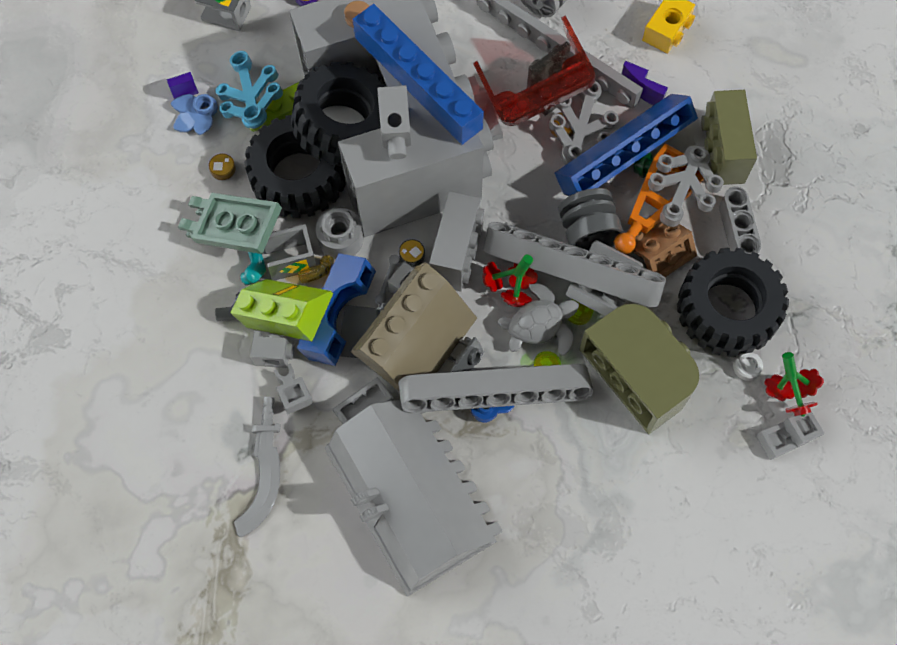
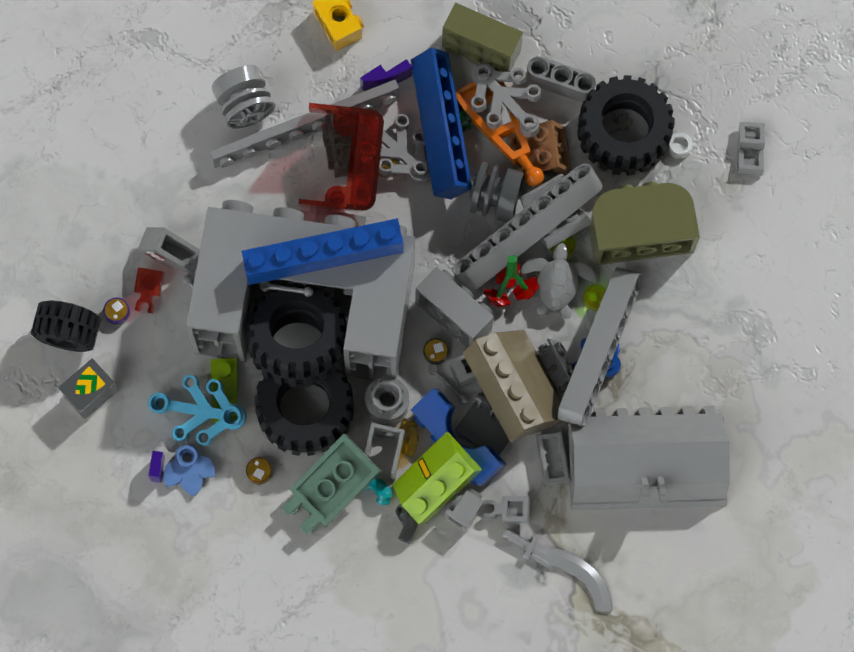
camera: 65 degrees left, 5 degrees up
(353, 9) = (228, 270): medium nougat tile -> none
(371, 62) = (265, 286): none -> light grey hinge
(394, 120) = (353, 290): light grey torso -> none
(803, 384) = (719, 112): red plant -> none

